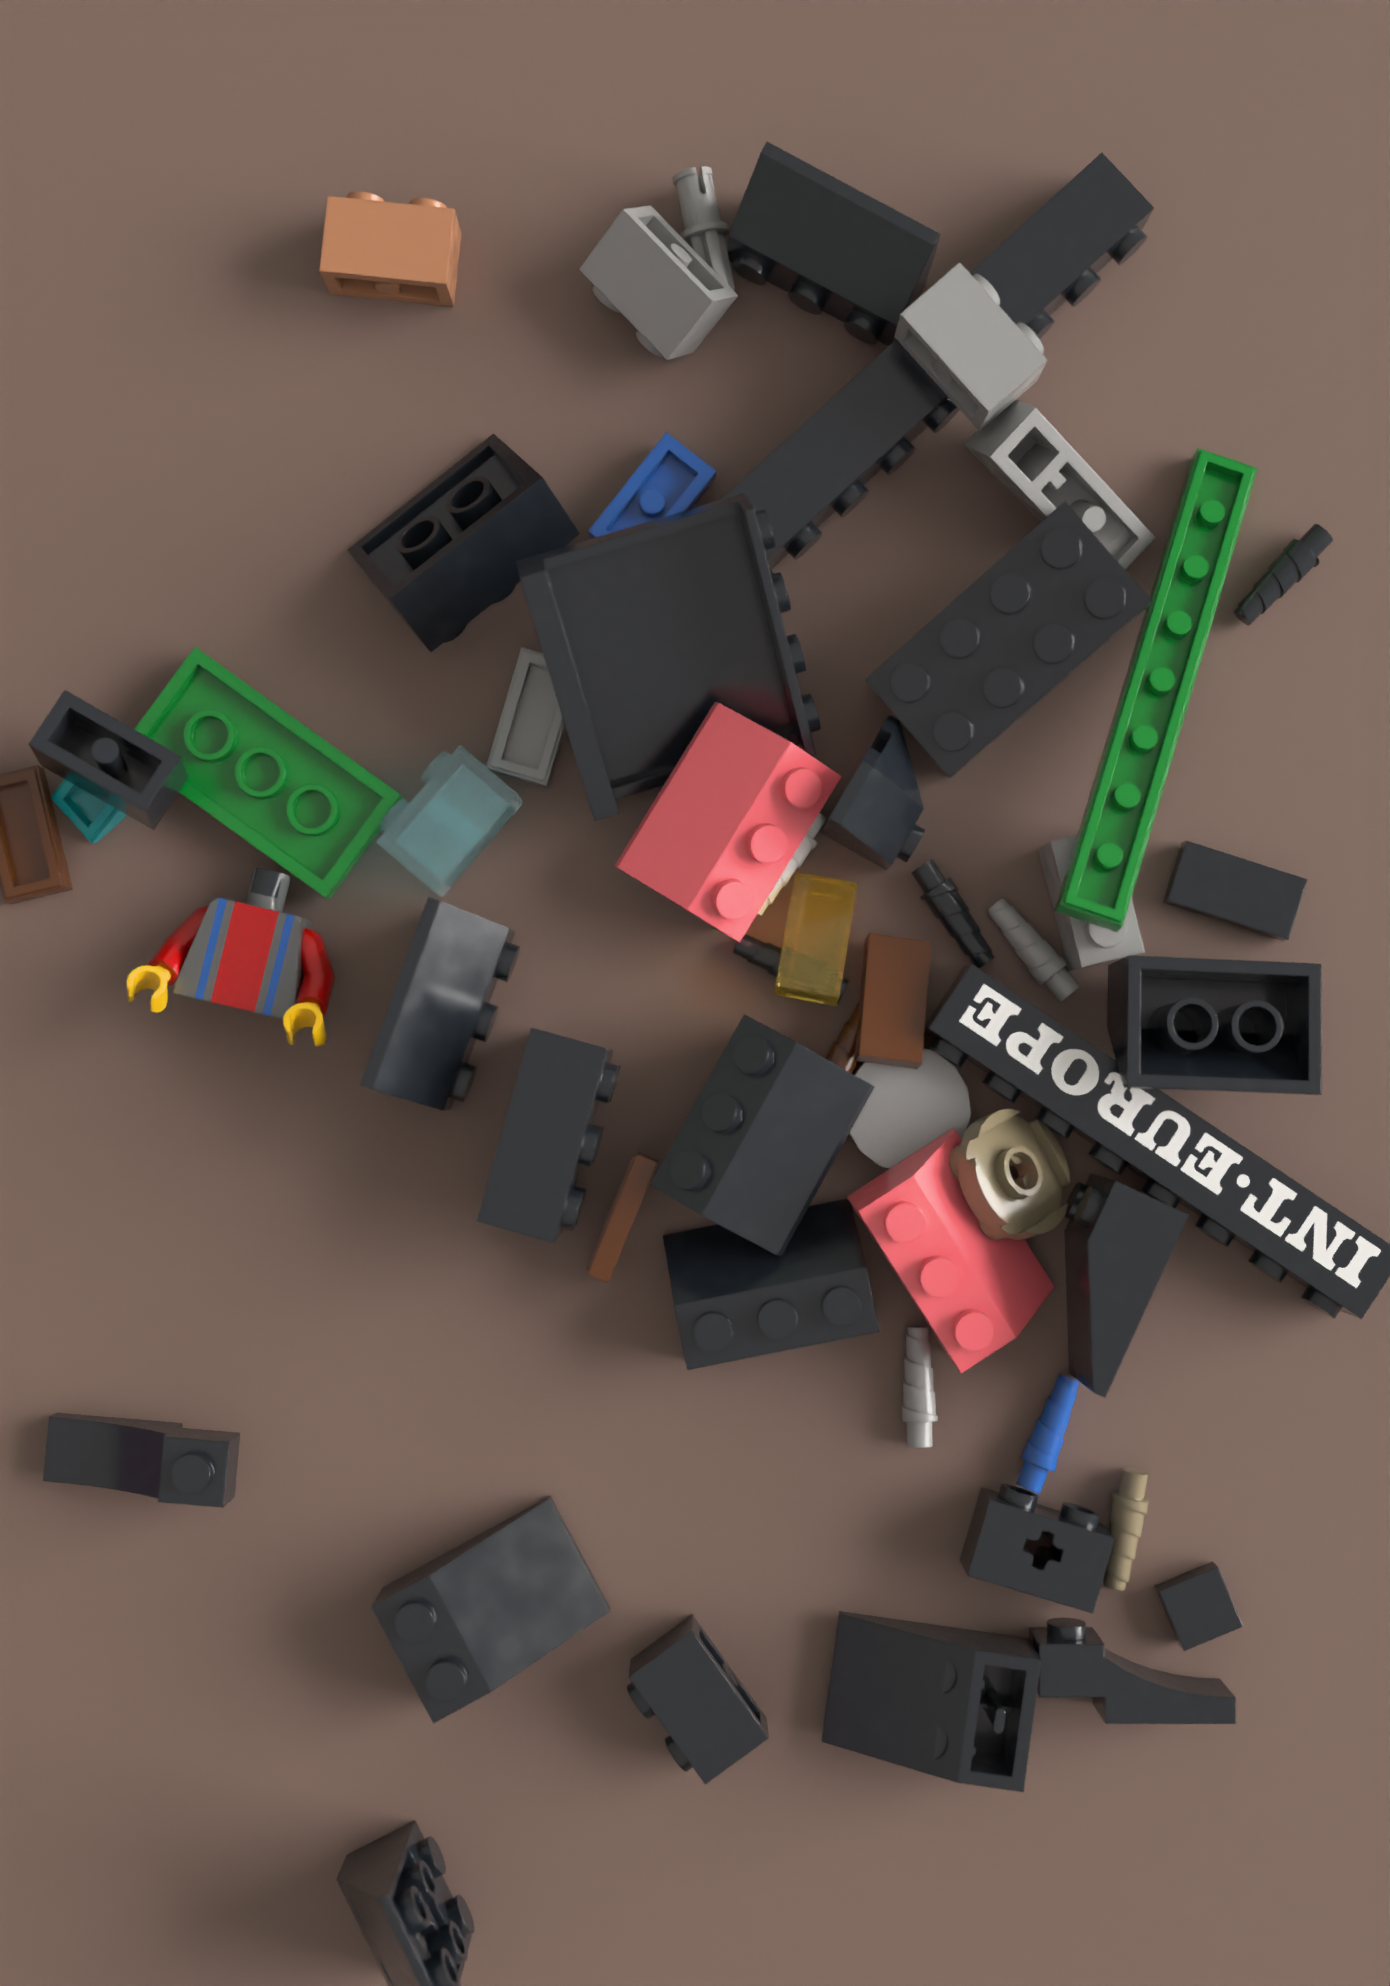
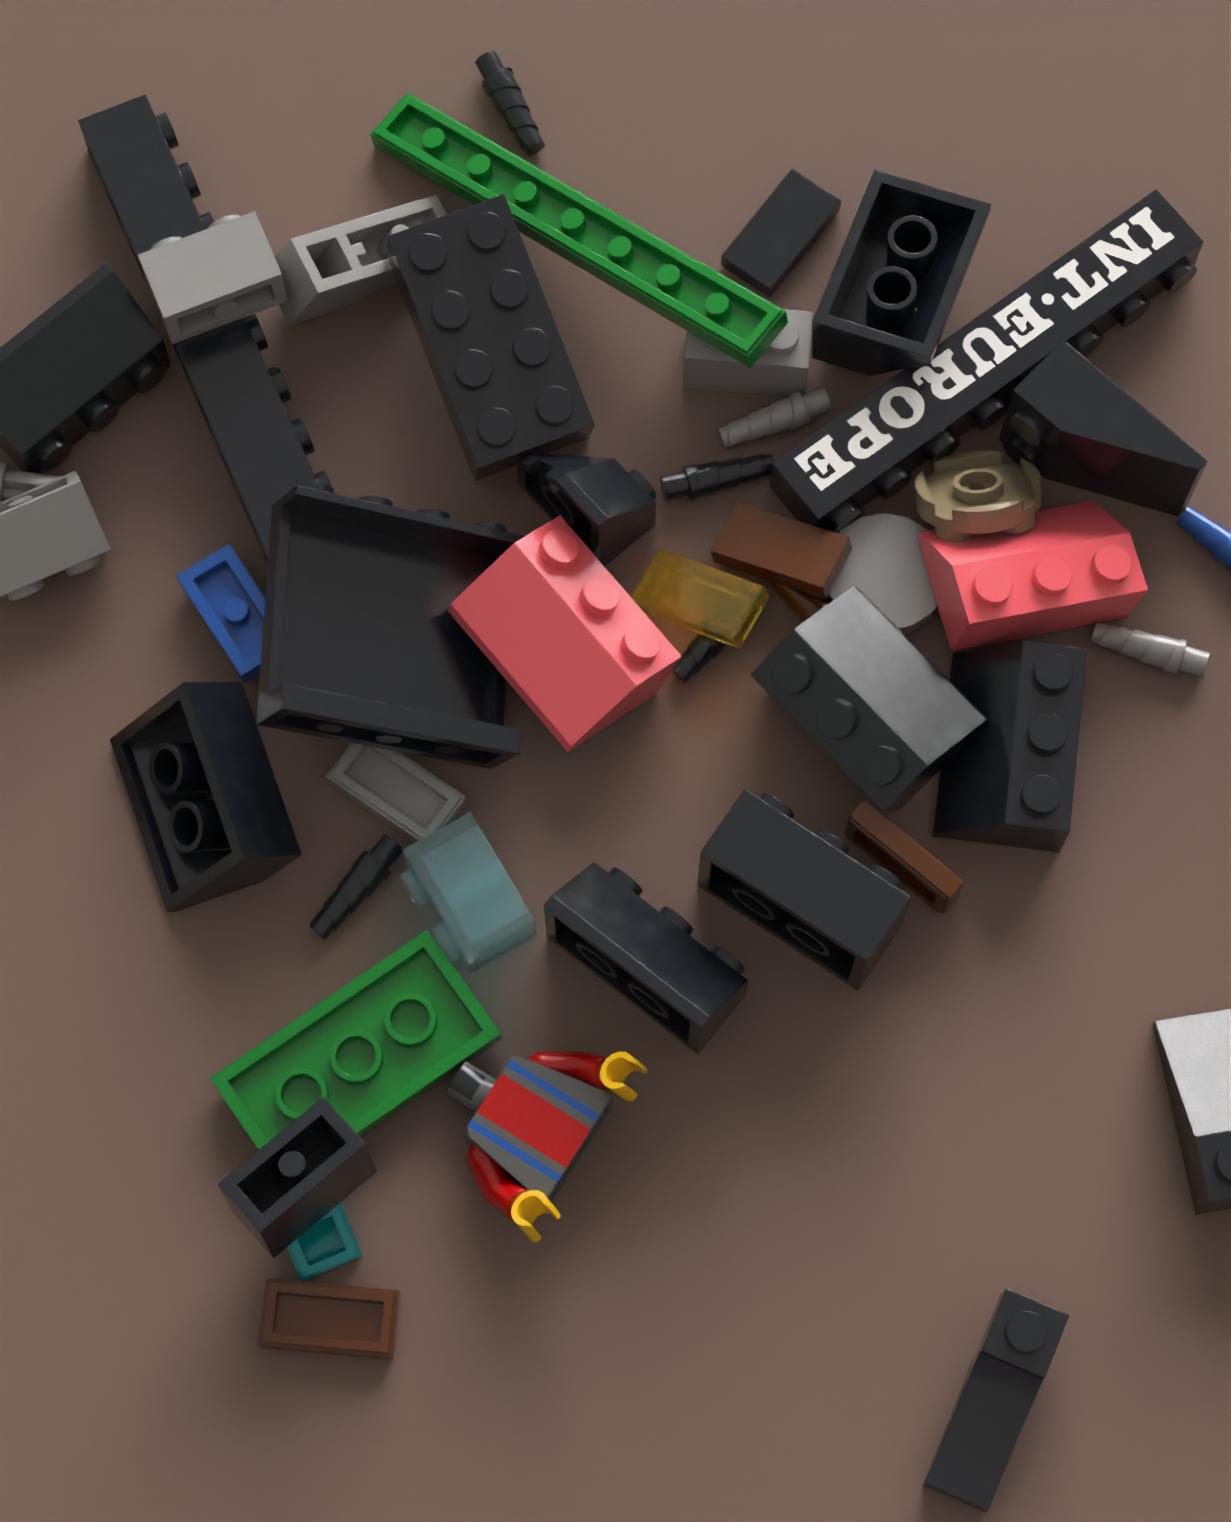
camera: 70 degrees left, 15 degrees down
(429, 714) = (360, 882): none -> black animal

